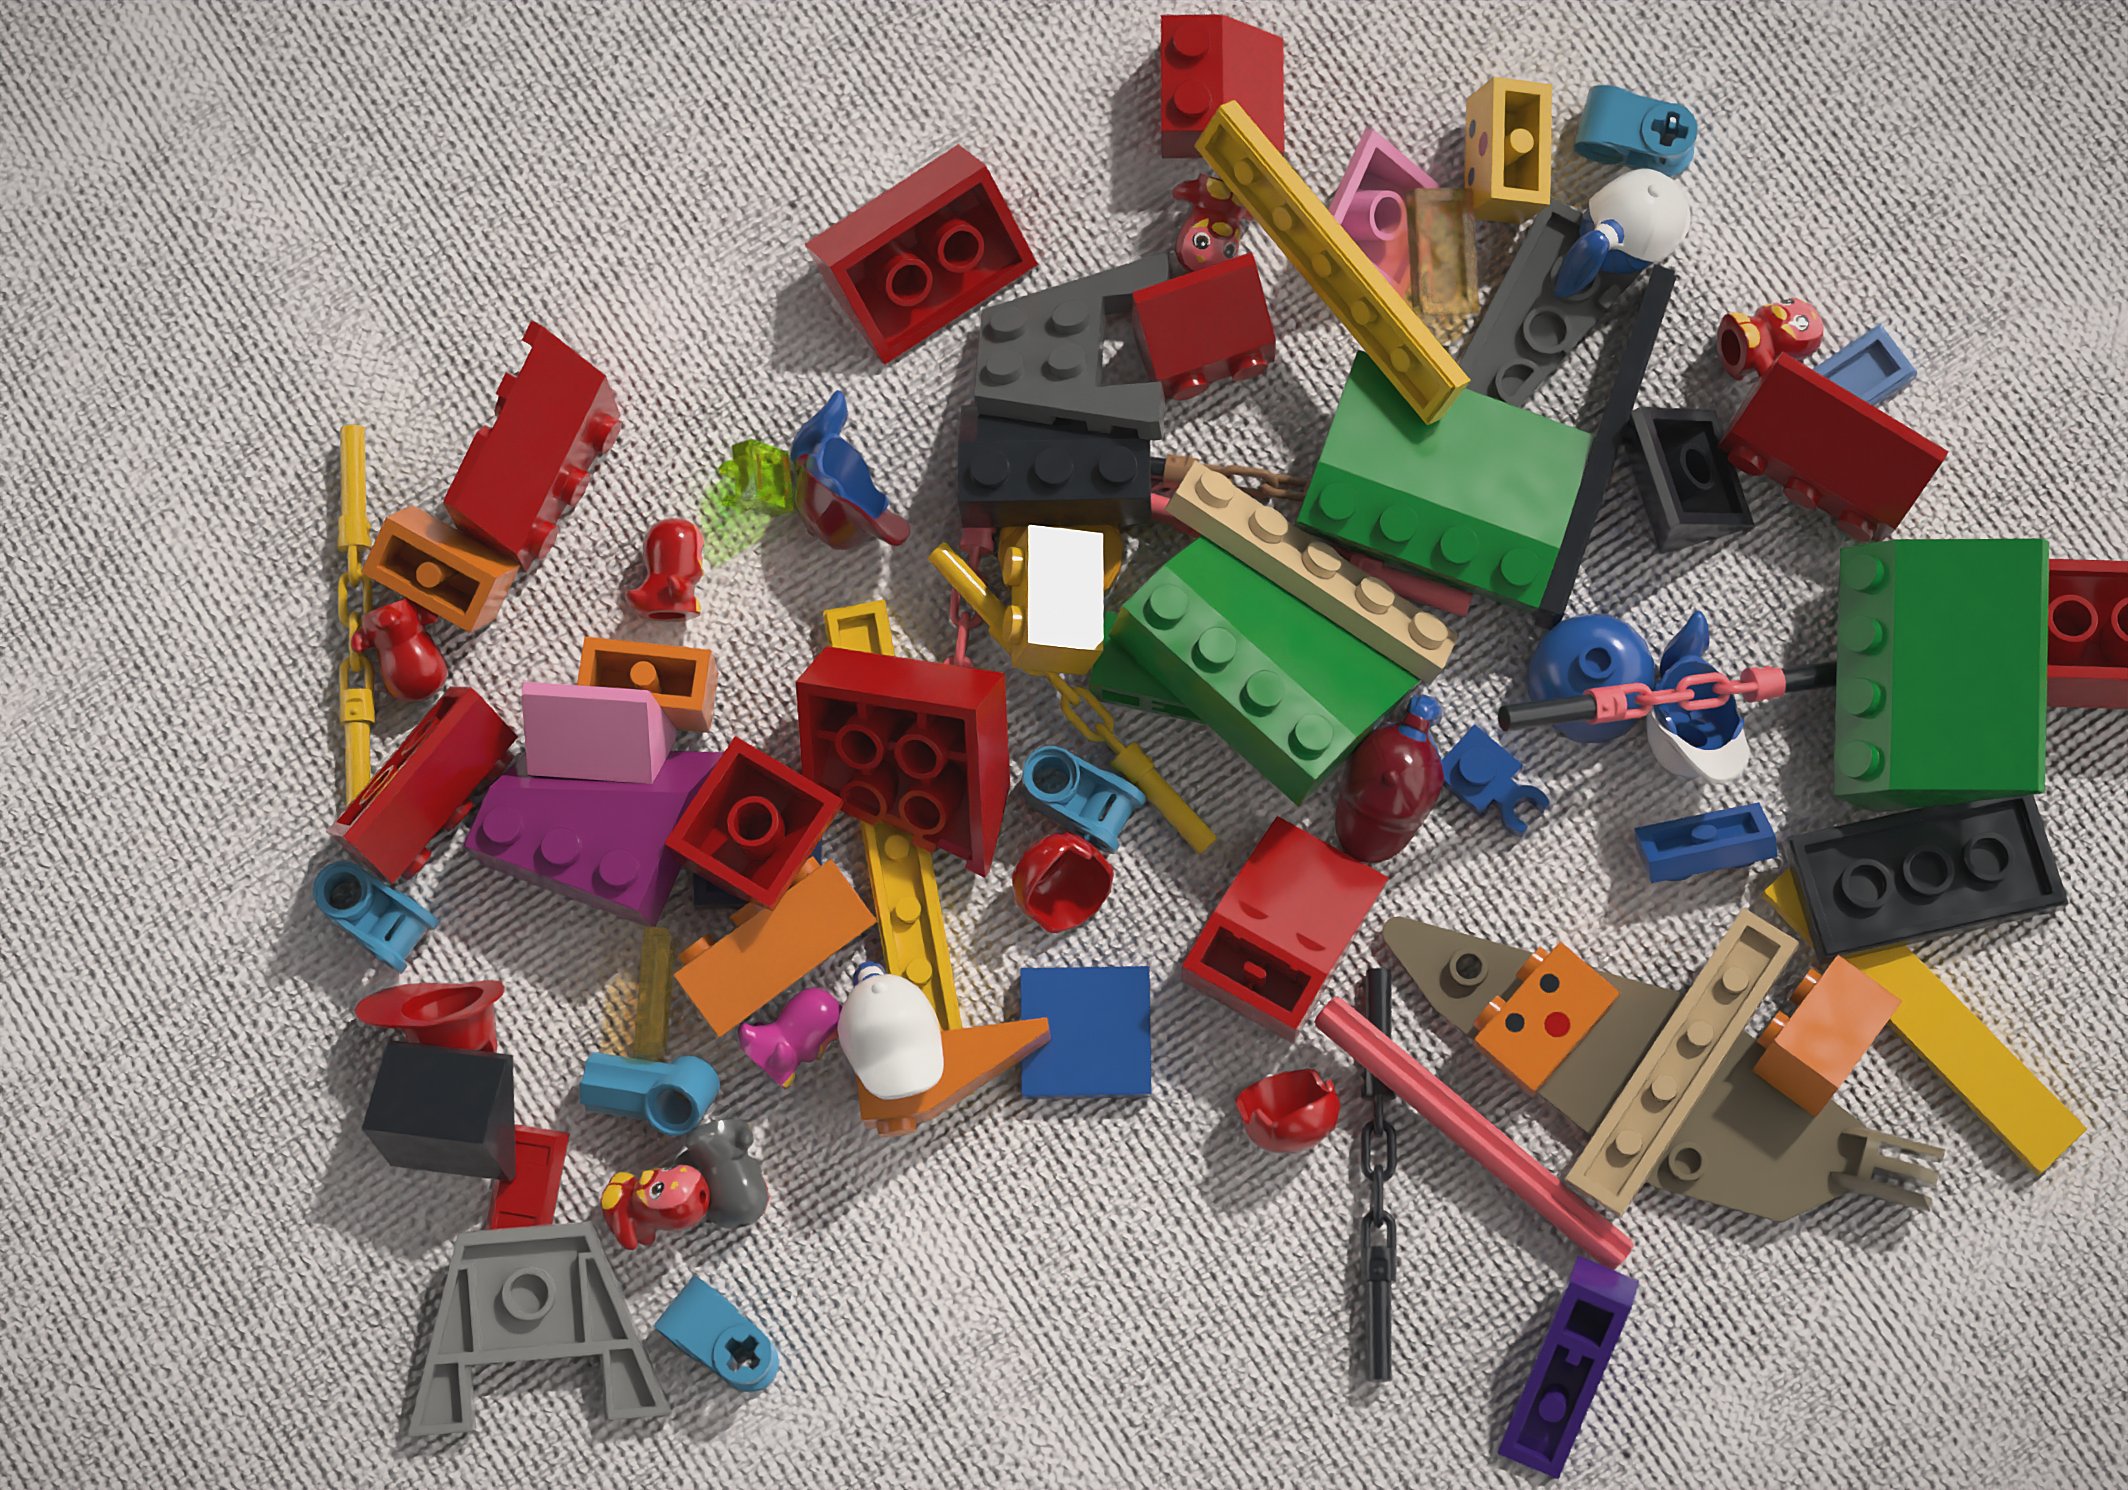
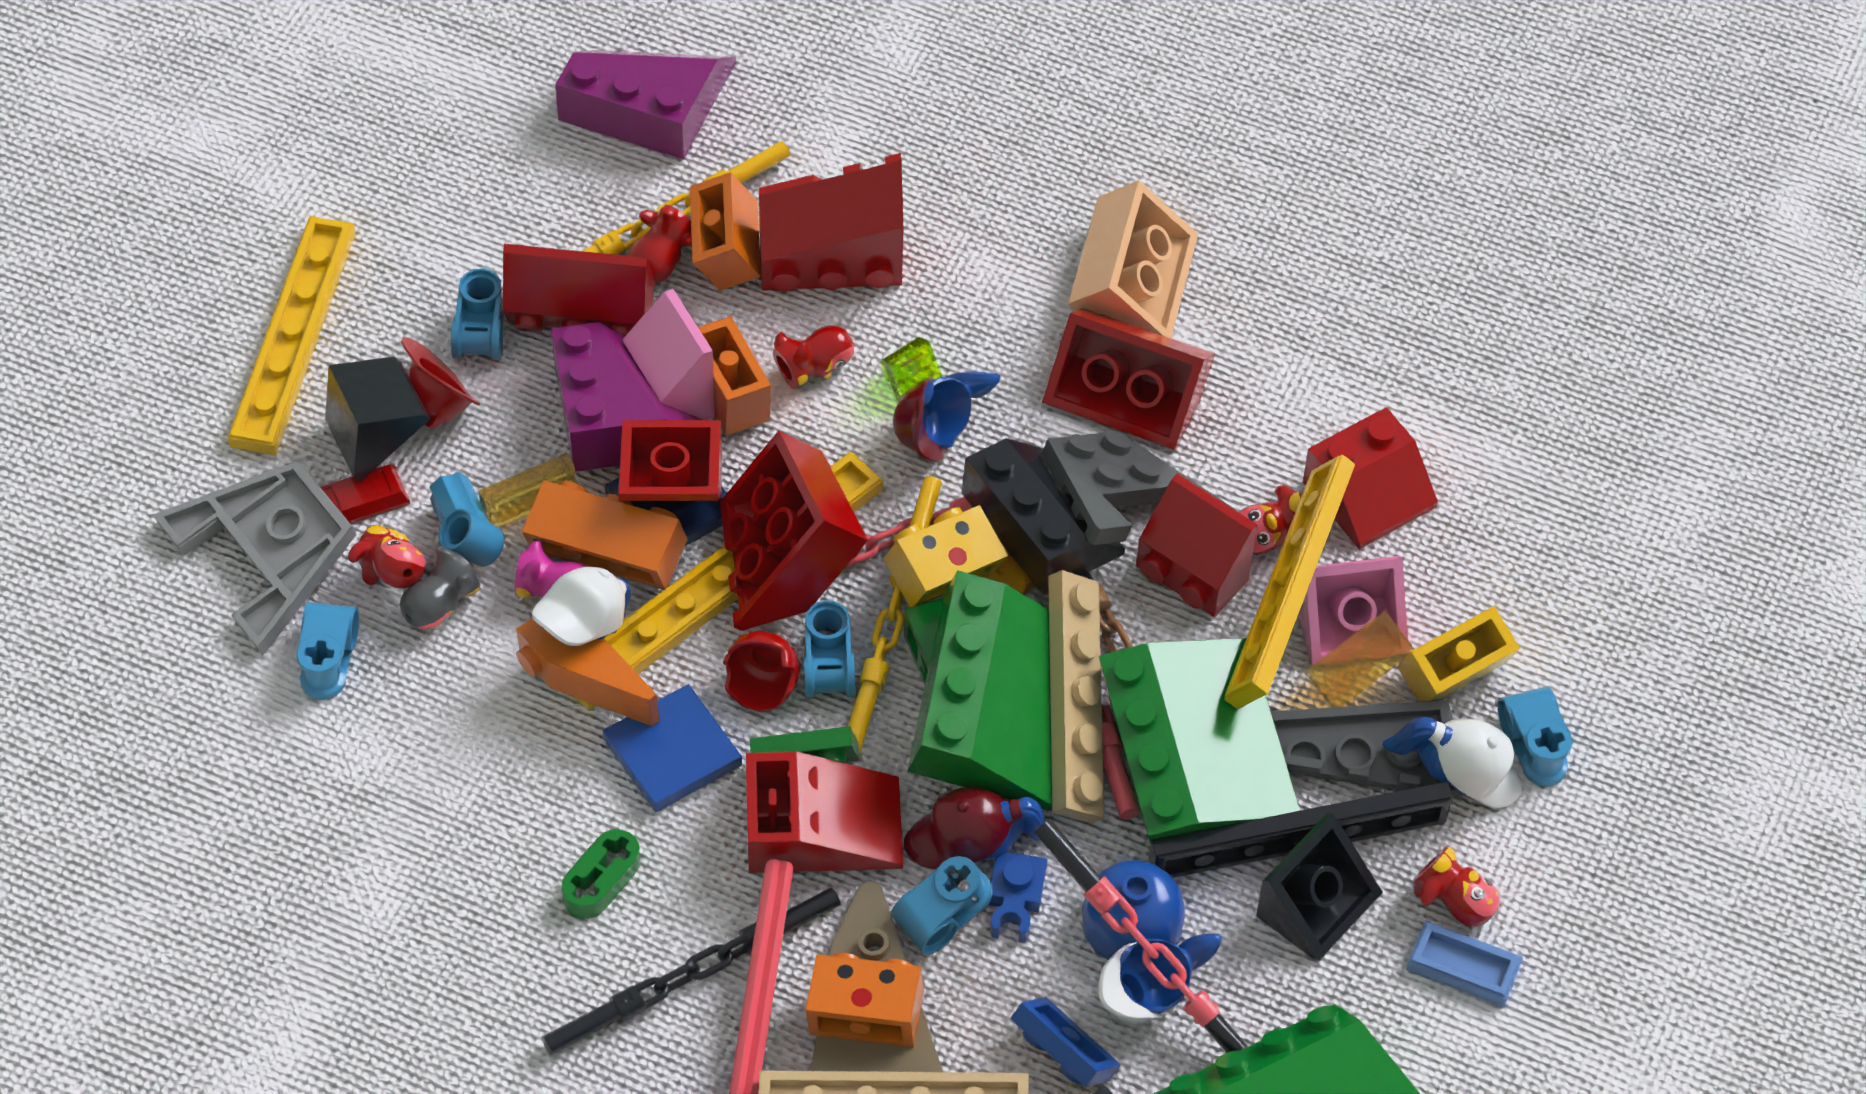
camera: 50 degrees right, 20 degrees down
(160, 537) = (642, 95): none -> magenta wedge
(243, 1137) = (291, 336): none -> yellow tile
(774, 151) = (1134, 260): none -> light nougat slope
(1185, 1207) = (593, 867): none -> green beam
(1208, 875) = (832, 744): none -> green plate
(1289, 1111) = (694, 887): red hair -> none
(1470, 878) = (938, 908): none -> dark azure piece
(1830, 449) = (1397, 956): red slope -> none

